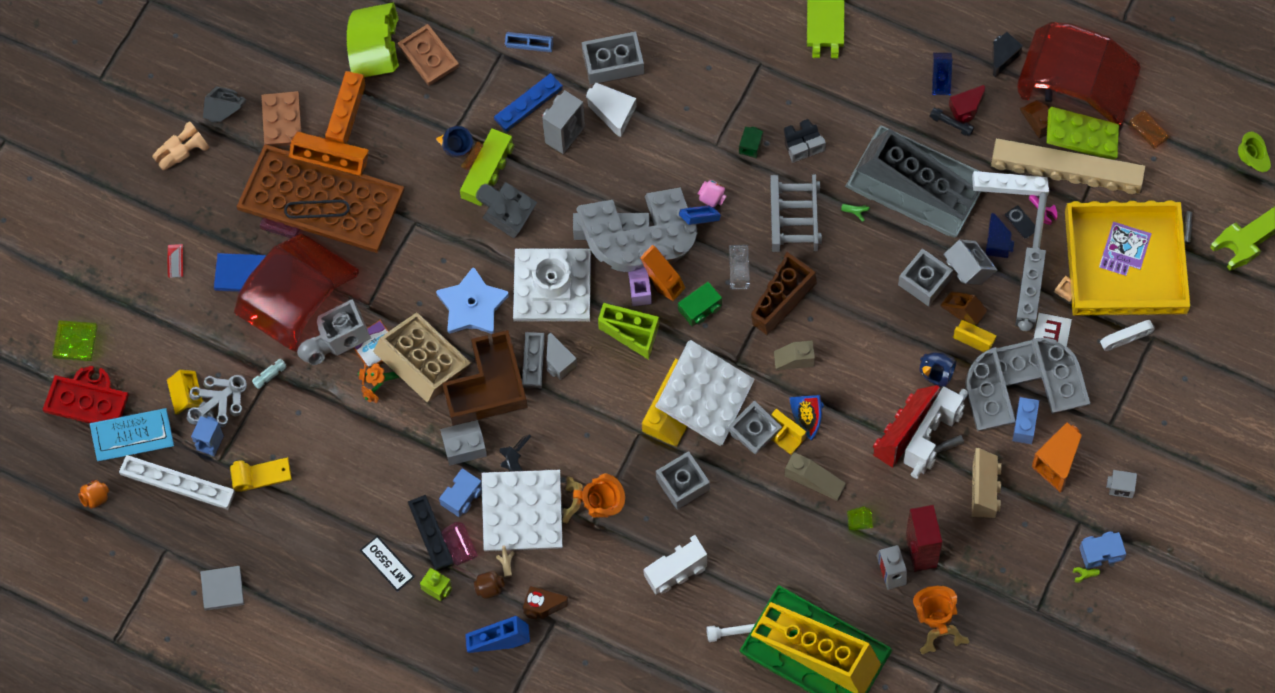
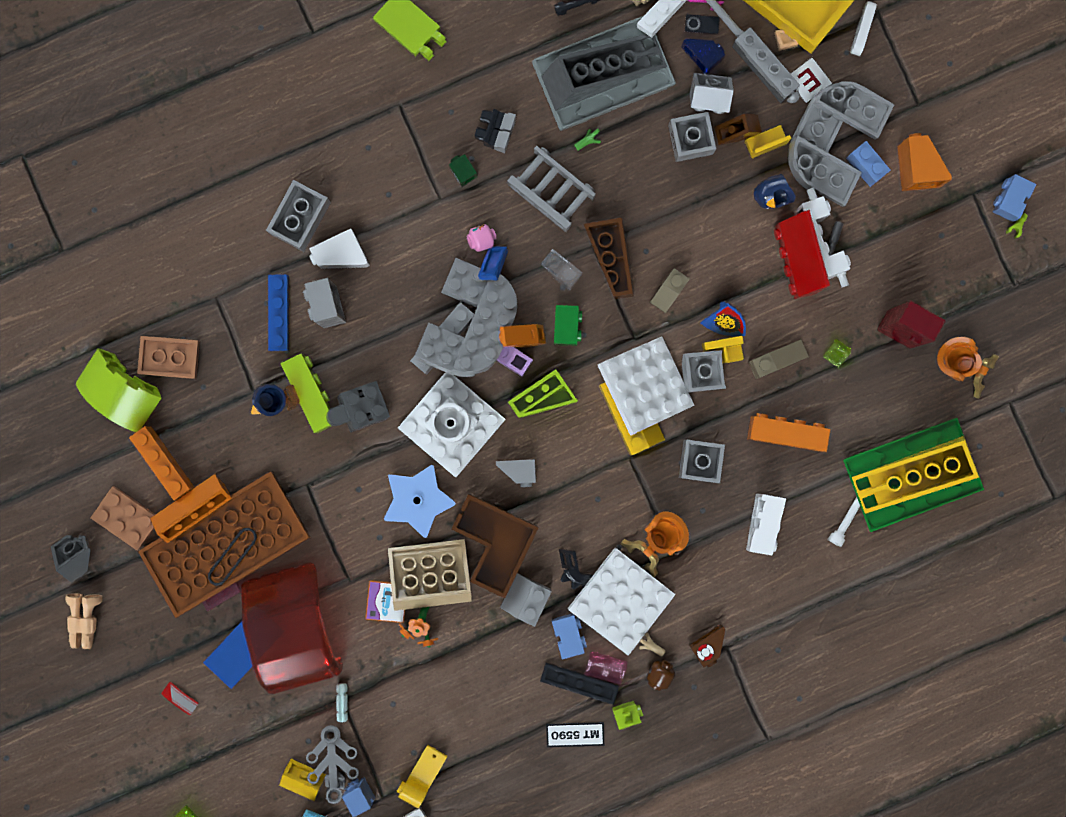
camera: 55 degrees left, 20 degrees up
(339, 330) = (355, 624): light grey brick -> none
(501, 635) = (707, 702): blue slope -> none
(529, 38) = (223, 266): medium blue piece -> none
(533, 360) = (502, 490): light grey tile -> none
(762, 529) = (788, 433): none -> orange brick
(892, 564) = (898, 363): light grey torso -> none
(985, 484) = (893, 240): tan slope -> none
(1122, 484) = (975, 137): light grey brick -> none

